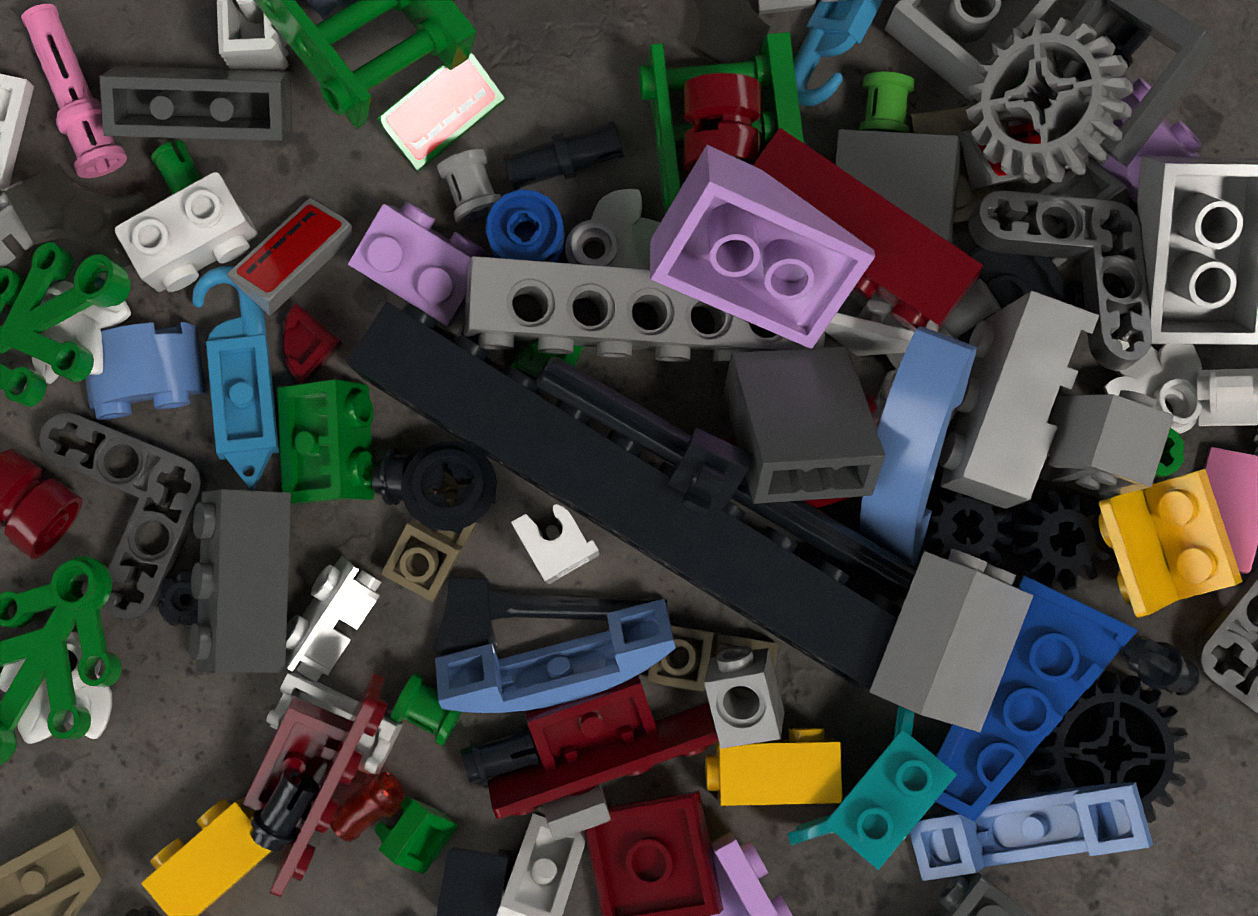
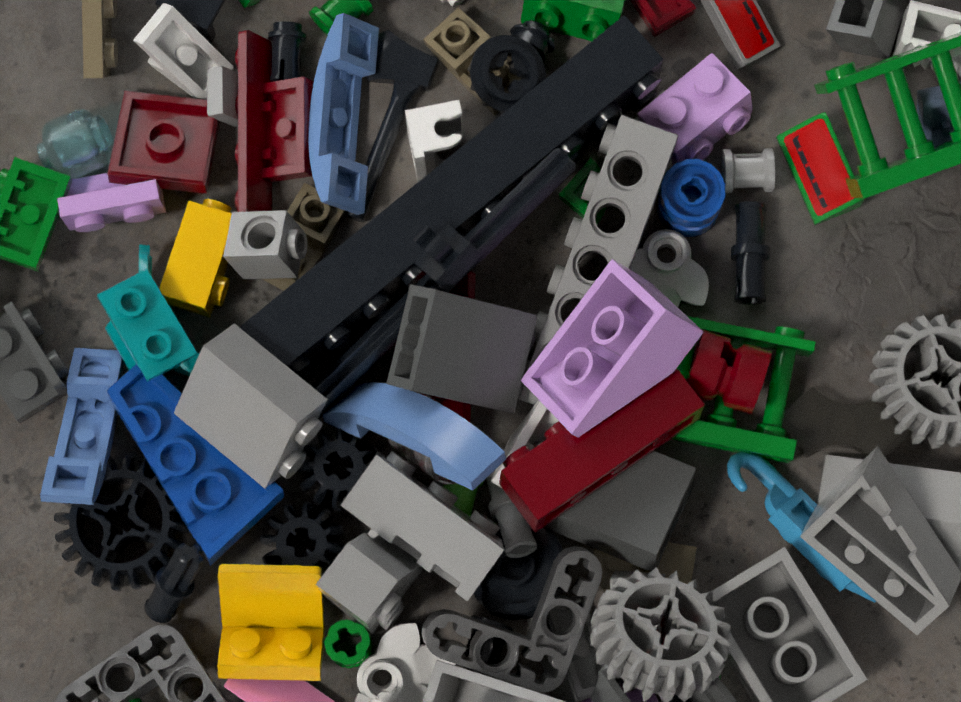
camera: 115 degrees right, 5 degrees down
(886, 101) = (709, 527): bright green bush -> none

